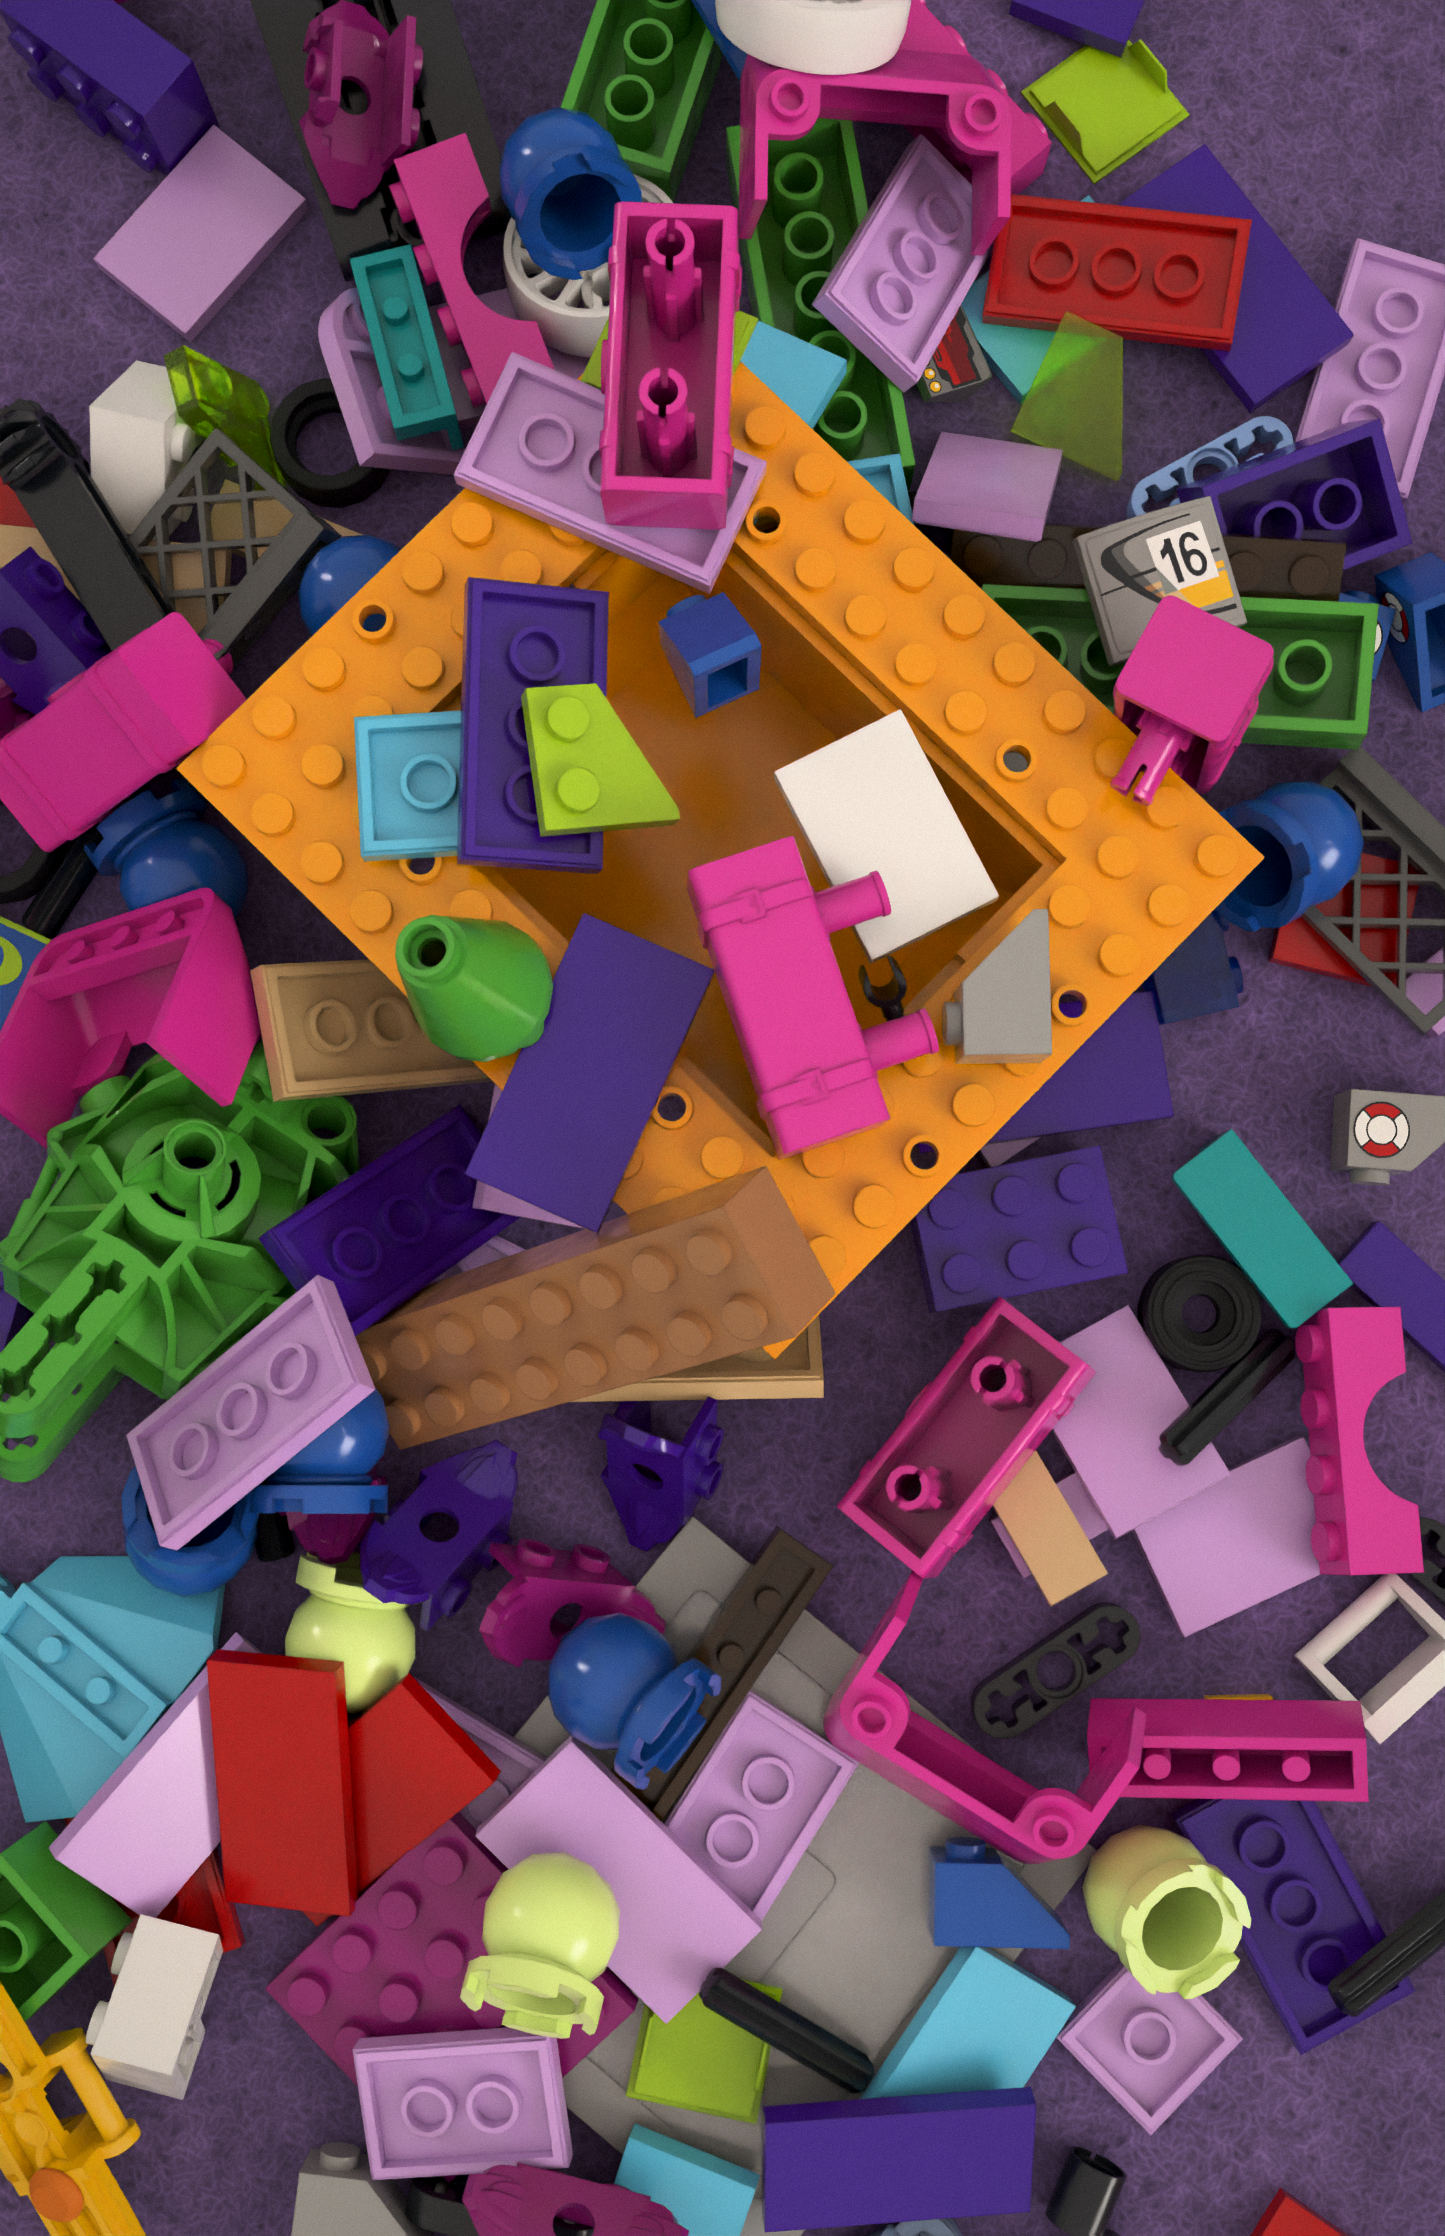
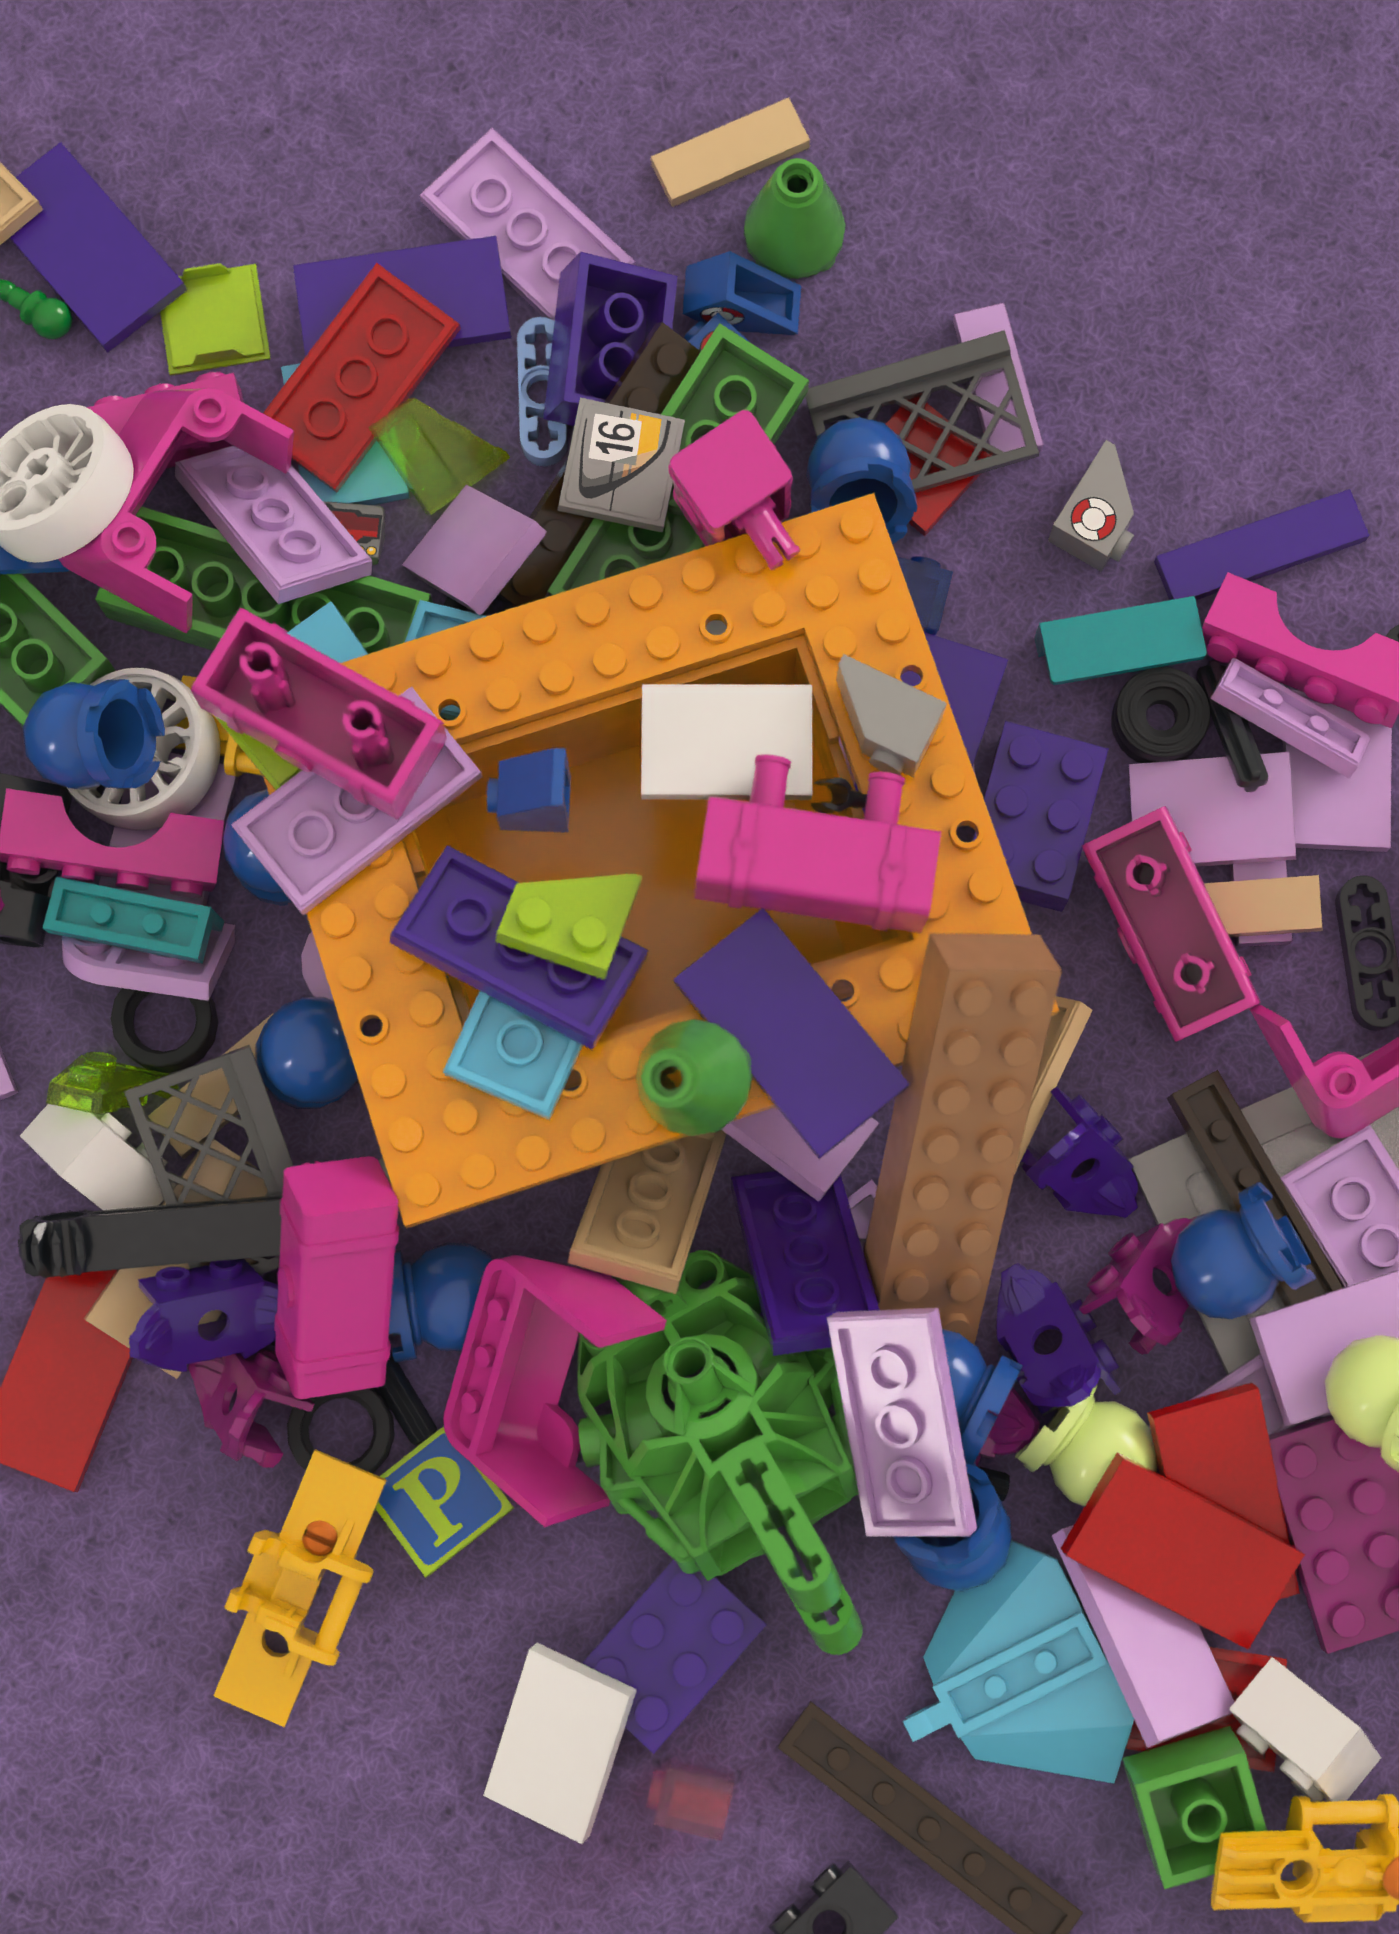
camera: 60 degrees left, 5 degrees down
(1270, 1457) = (1291, 717): none -> lavender tile

